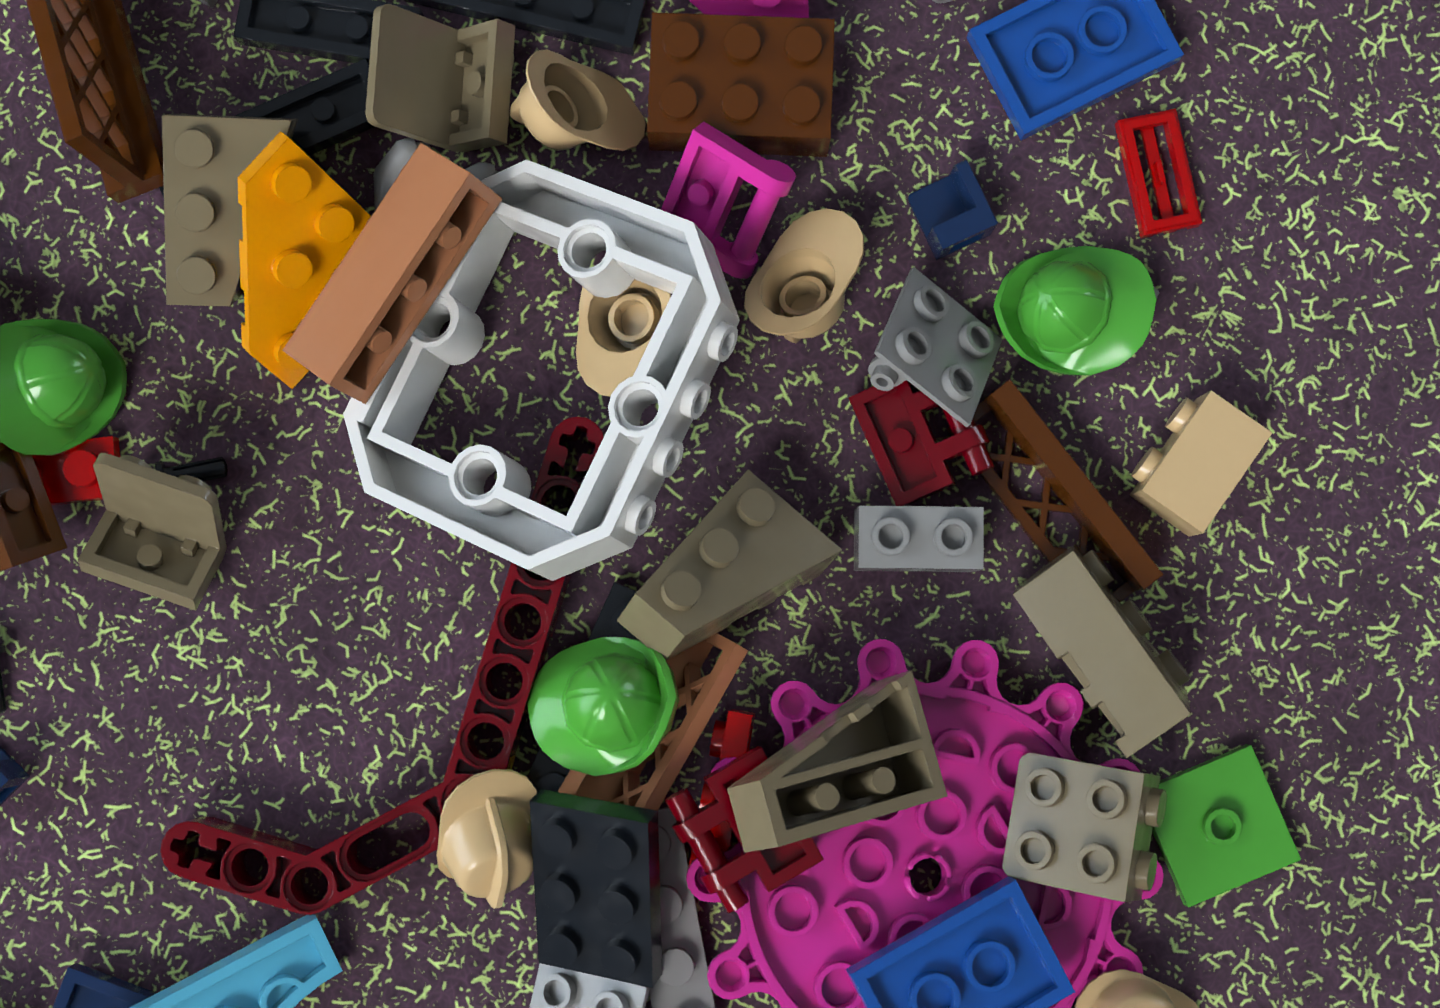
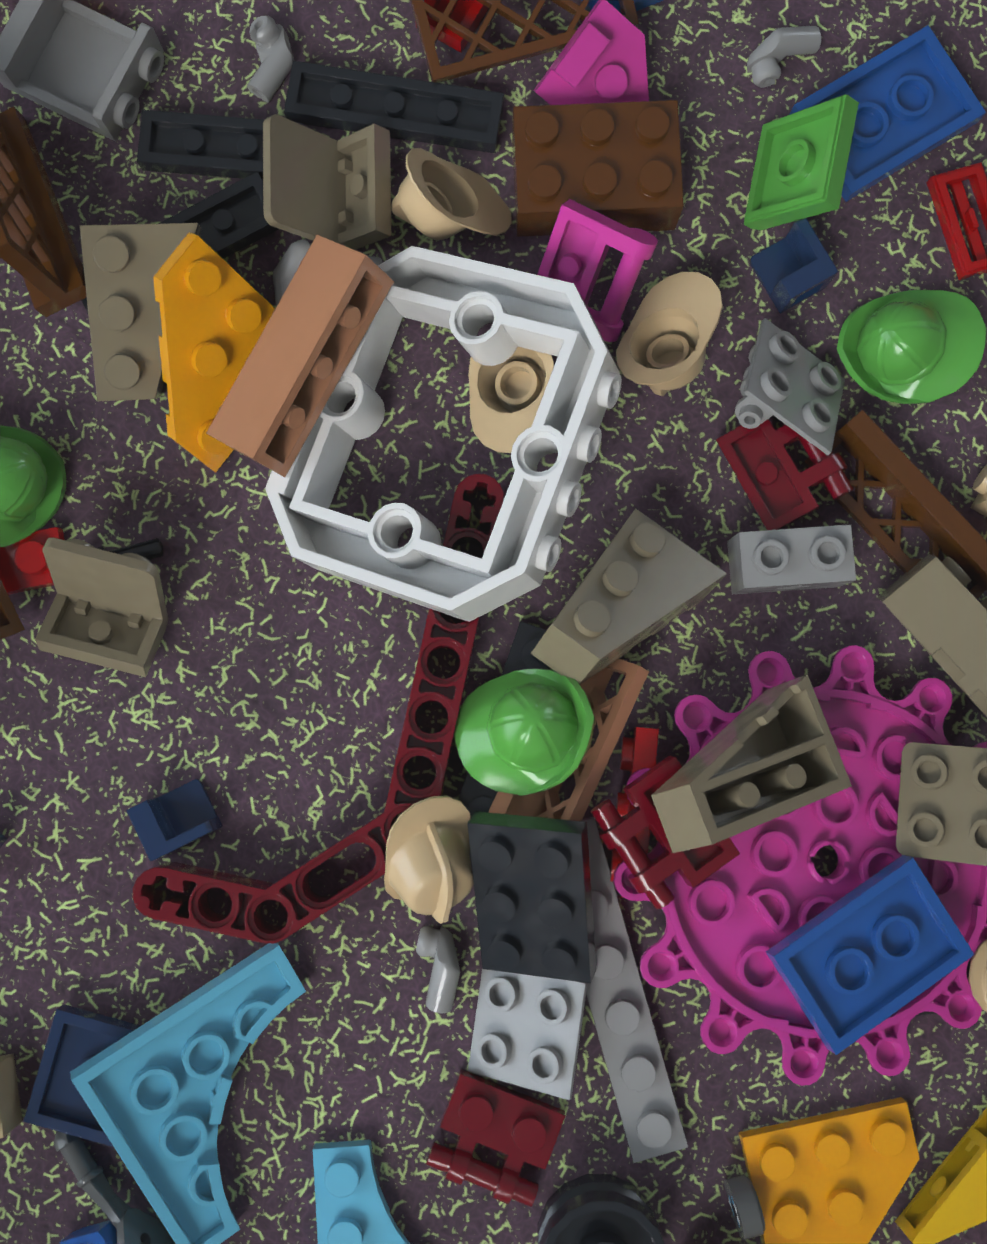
camera: 10 degrees left, 0 degrees up
(214, 770) = (174, 819): none -> dark blue panel
(497, 959) = (445, 967): none -> light grey arm
(967, 99) = (801, 164): none -> bright green plate

